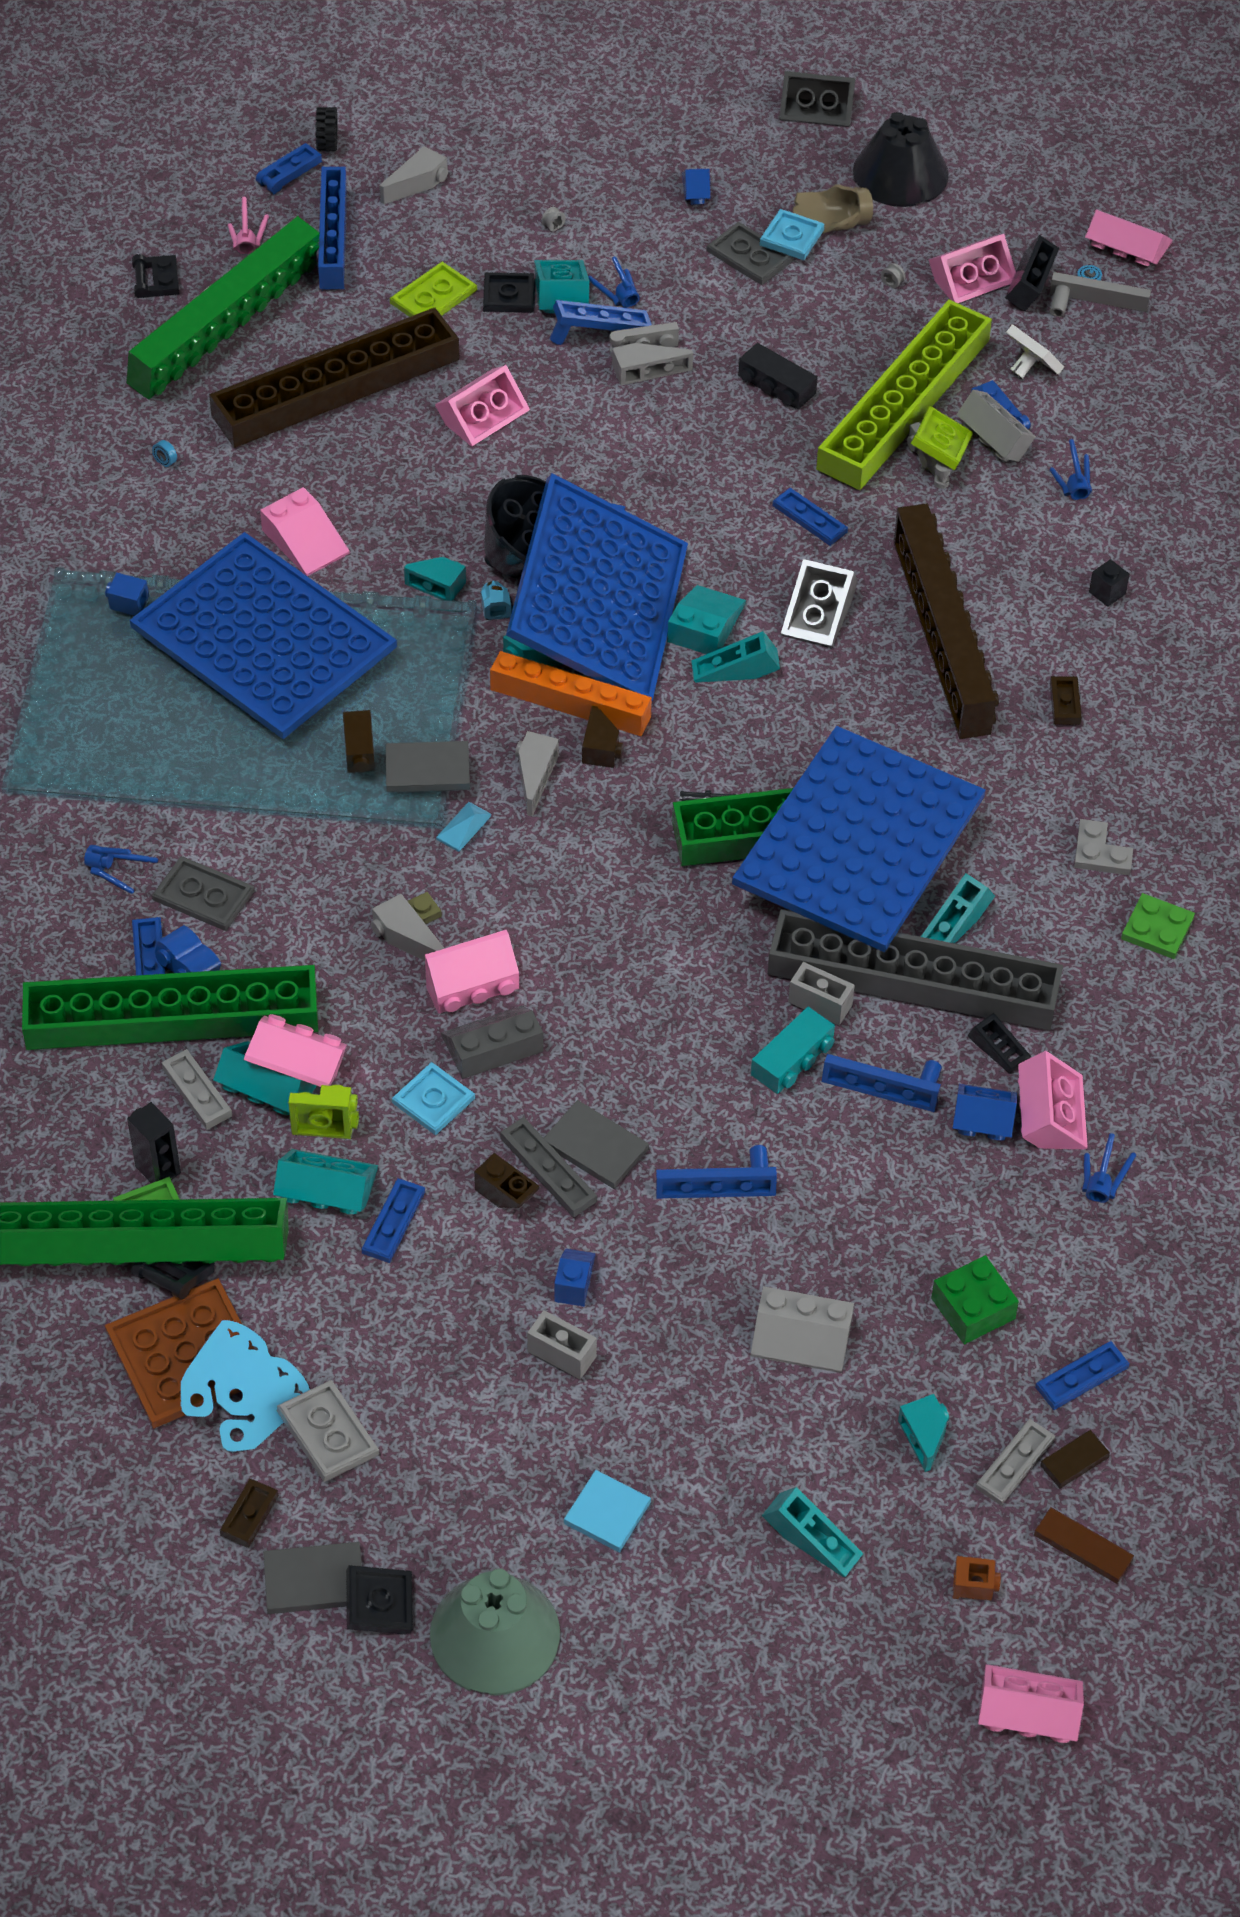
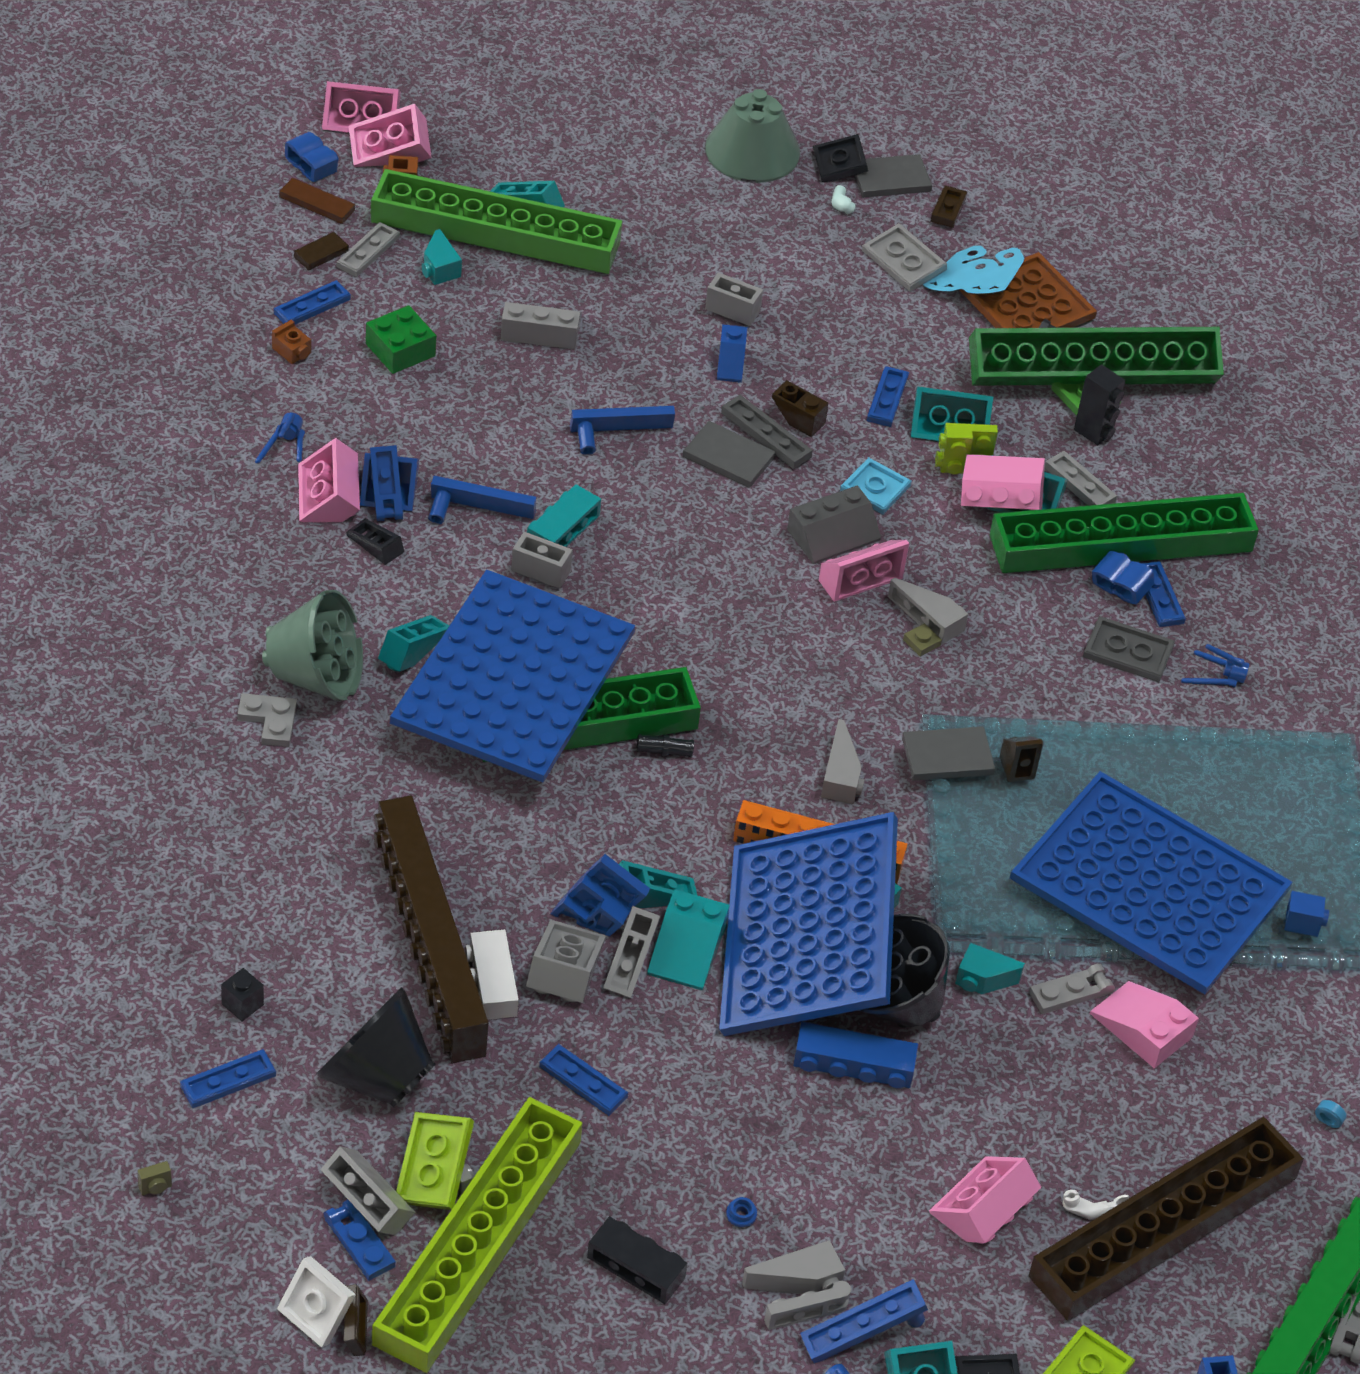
camera: 170 degrees right, 5 degrees down
(361, 568) = (1071, 989): none -> light grey plate
(391, 1524) = (842, 202): none -> light aqua arm
(401, 402) = (1075, 1204): none -> white arm
(463, 826) = (899, 718): medium azure slope -> none
(601, 741) = (779, 790): dark brown slope -> none
(607, 1511) = (681, 215): medium azure tile -> none
(686, 410) = (745, 1205): none -> blue plate
(758, 608) = (631, 952): none -> light grey slope
(785, 633) = (602, 897): none -> blue slope
(855, 1479) = (496, 221): none -> bright green brick
(887, 593) = (493, 973): none -> white brick
(923, 971) = (430, 576): dark grey brick -> none
(989, 1632) = (393, 133): none -> bright pink slope
(991, 1082) = (386, 482): none -> blue plate
(996, 507) = (383, 1054): none -> black cone
(1002, 348) = (356, 1322): none -> dark brown tile
(1062, 875) = (317, 647): none -> sand green cone
(1065, 700) = (298, 864): dark brown plate -> none
(1078, 485) = (270, 1130): blue plant -> none
(1095, 1612) = (311, 156): none -> blue brick
(1104, 1311) = (291, 342): none -> dark orange brick
(1115, 530) = (228, 1078): none -> blue tile
(1158, 926) = (218, 647): bright green plate -> none
(1170, 450) = (154, 1178): none -> olive plate

